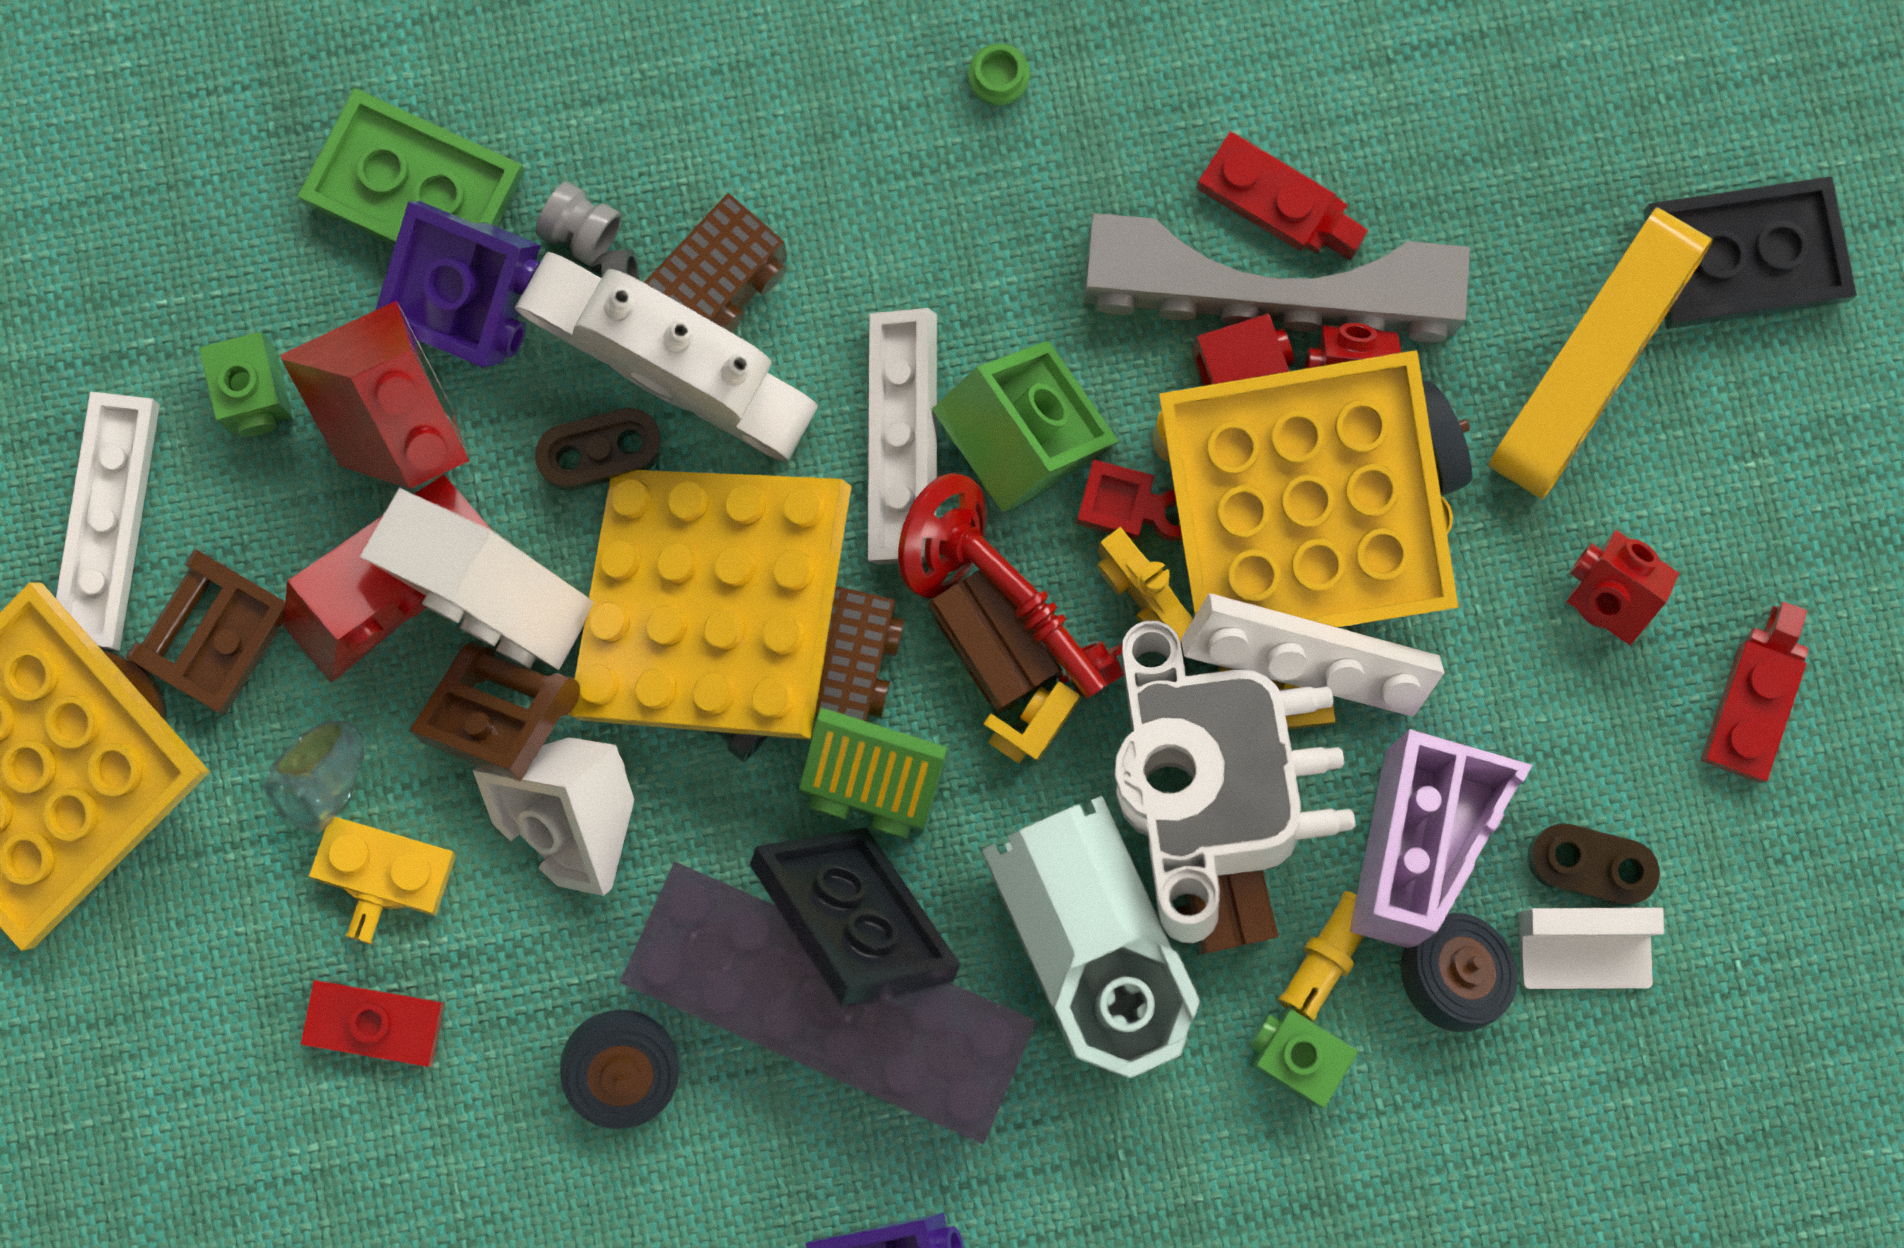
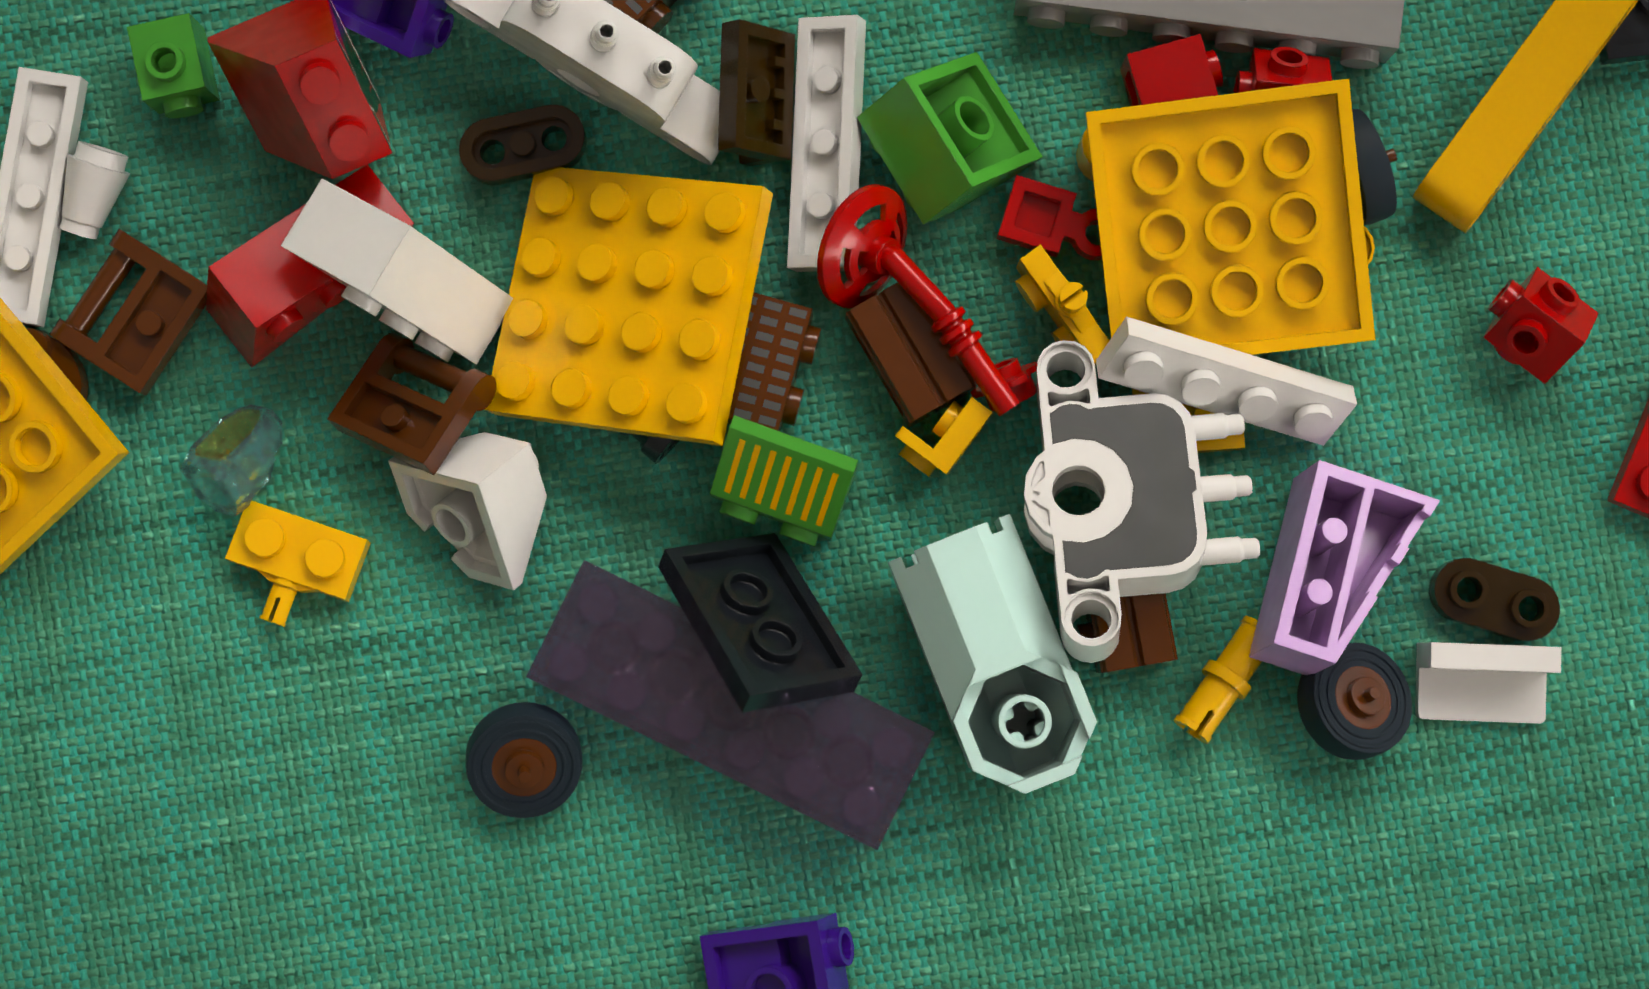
camera: 10 degrees right, 5 degrees up
(165, 509) = (91, 188): none -> white cone
(372, 1023) = (284, 704): red plate -> none
(830, 388) = (756, 92): none -> dark brown bracket
(1301, 1056) = (1194, 776): bright green brick -> none

